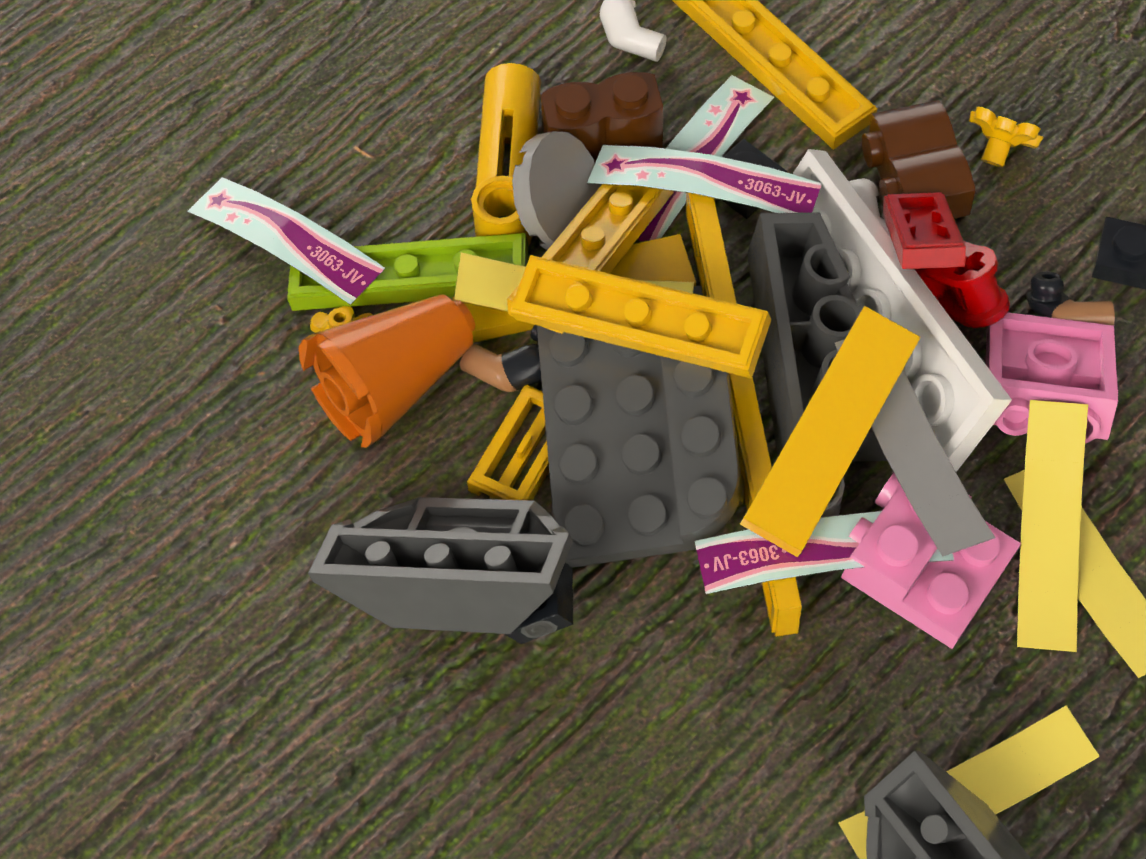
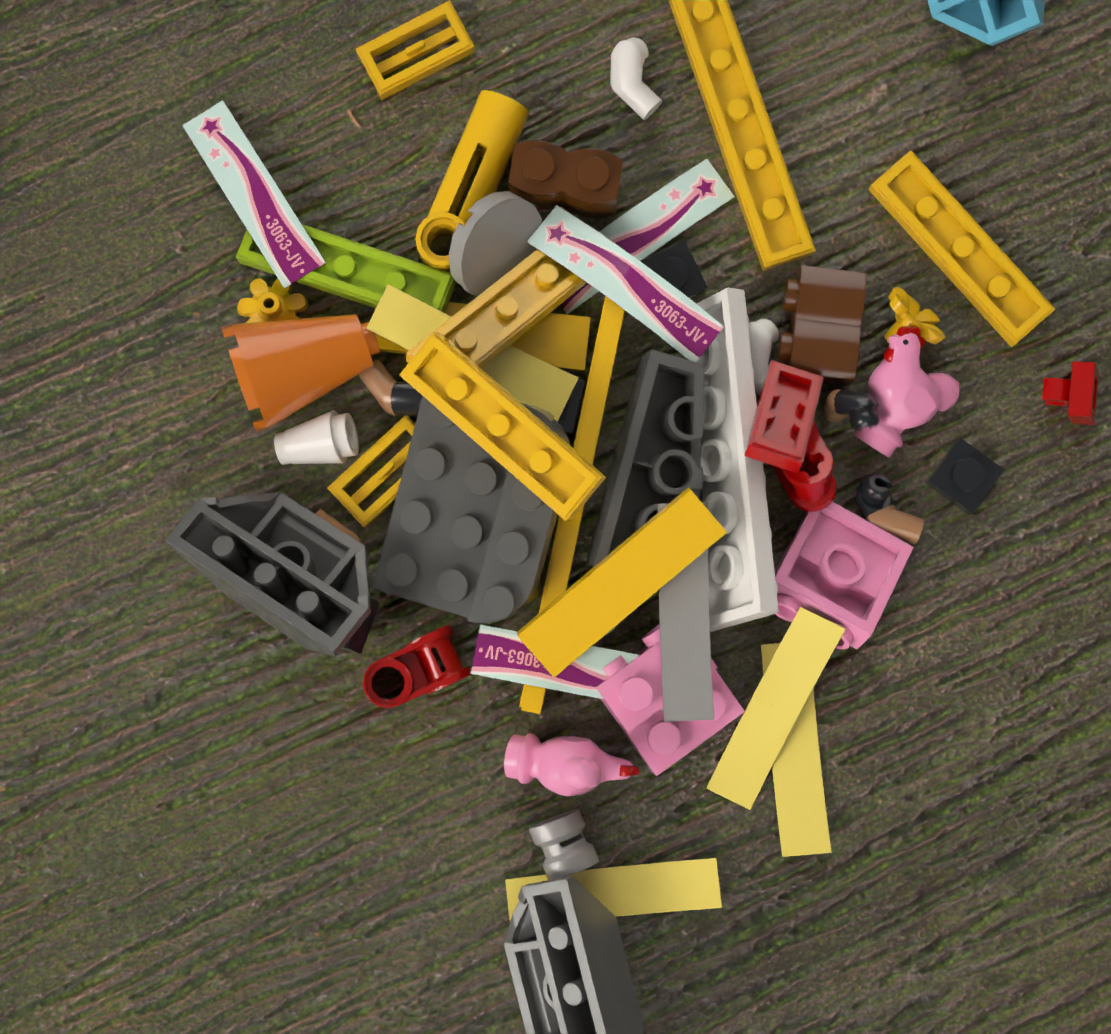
camera: 20 degrees right, 25 degrees up
(411, 77) = (425, 67): none -> yellow tile
(440, 437) = (319, 440): none -> white cone
(648, 619) = (419, 668): none -> red piece
(851, 659) = (563, 763): none -> bright pink animal
(884, 741) = (568, 857): none -> light grey wheel
(991, 207) = (858, 405): none -> black arm
(1018, 67) = (961, 248): none -> yellow tile
(1027, 194) = (905, 392): none -> bright pink animal

